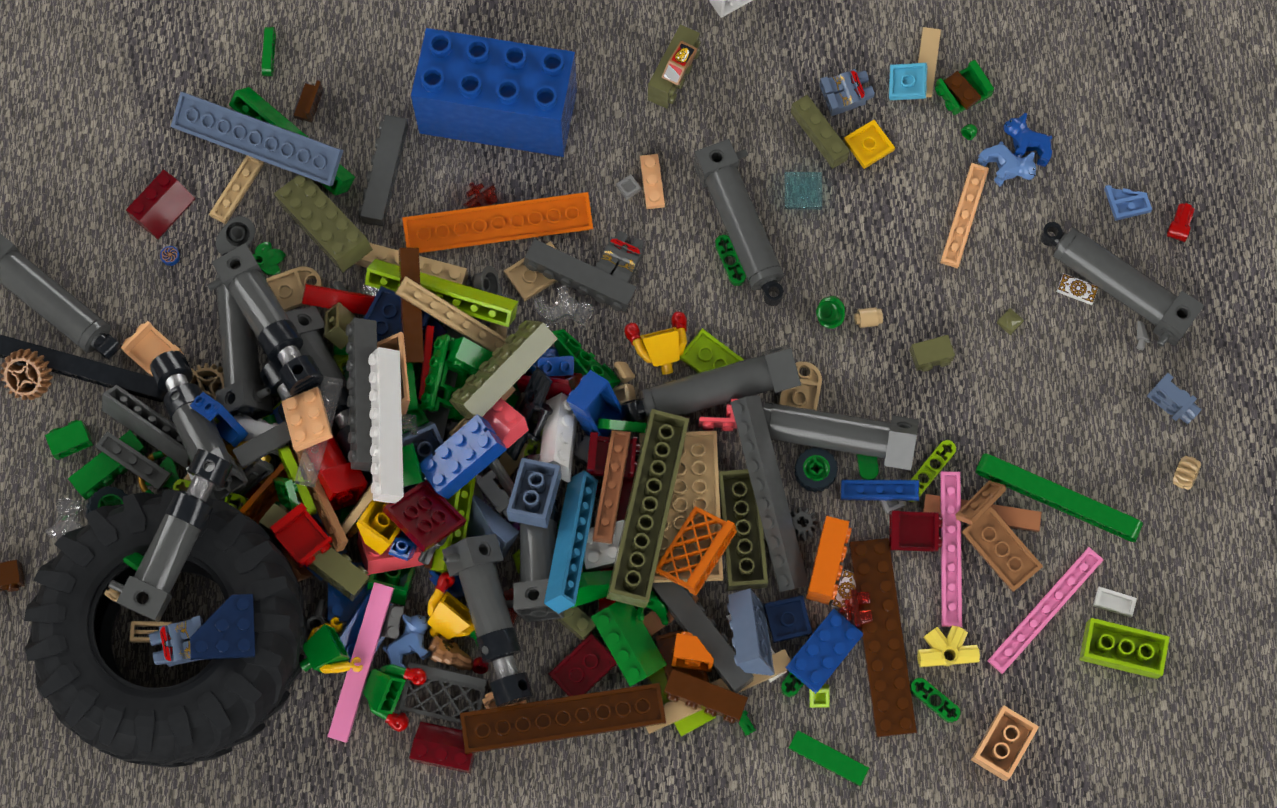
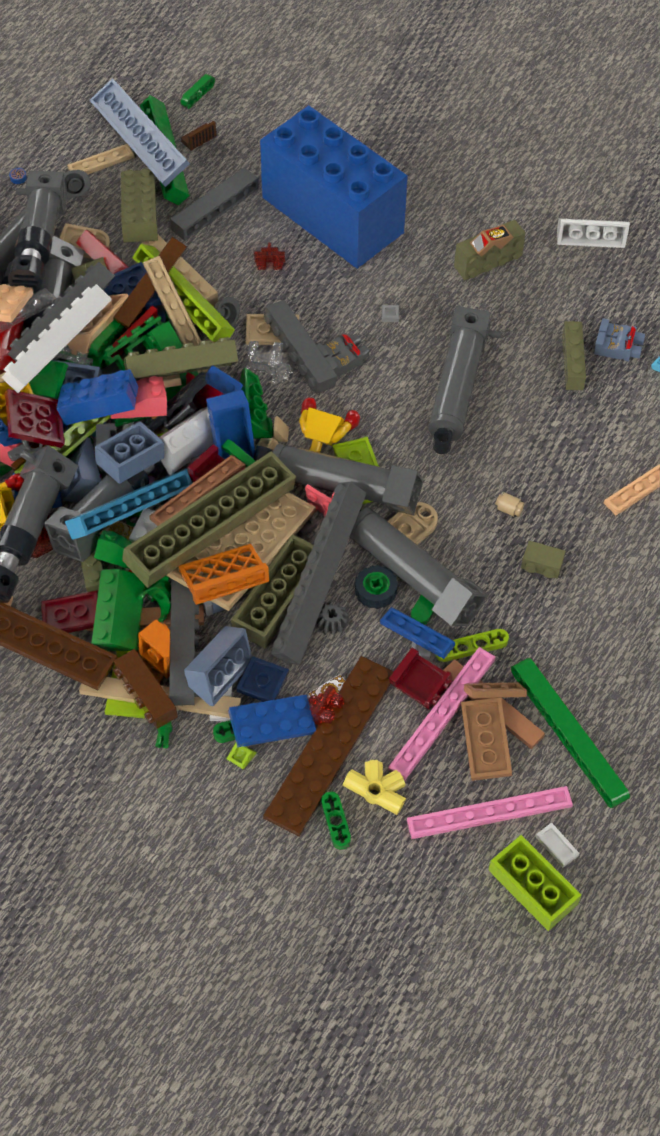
camera: 35 degrees right, 15 degrees down
(160, 204) = (38, 140): dark red slope -> none
(269, 257) = (82, 213): green plate -> none
(498, 223) = (269, 280): orange plate -> none
(652, 181) = (411, 319): light nougat plate -> none
(720, 249) = (427, 398): green beam -> none
(803, 190) = (527, 389): clear light blue plate -> none
(827, 560) = (329, 653): orange brick -> none
(828, 758) = (209, 807): green tile -> none
(830, 312) = (480, 483): green hair -> none
(869, 144) = (608, 387): yellow plate -> none
(1004, 743) = (367, 889): light nougat brick -> none
(1010, 321) = (630, 577): olive tile -> none

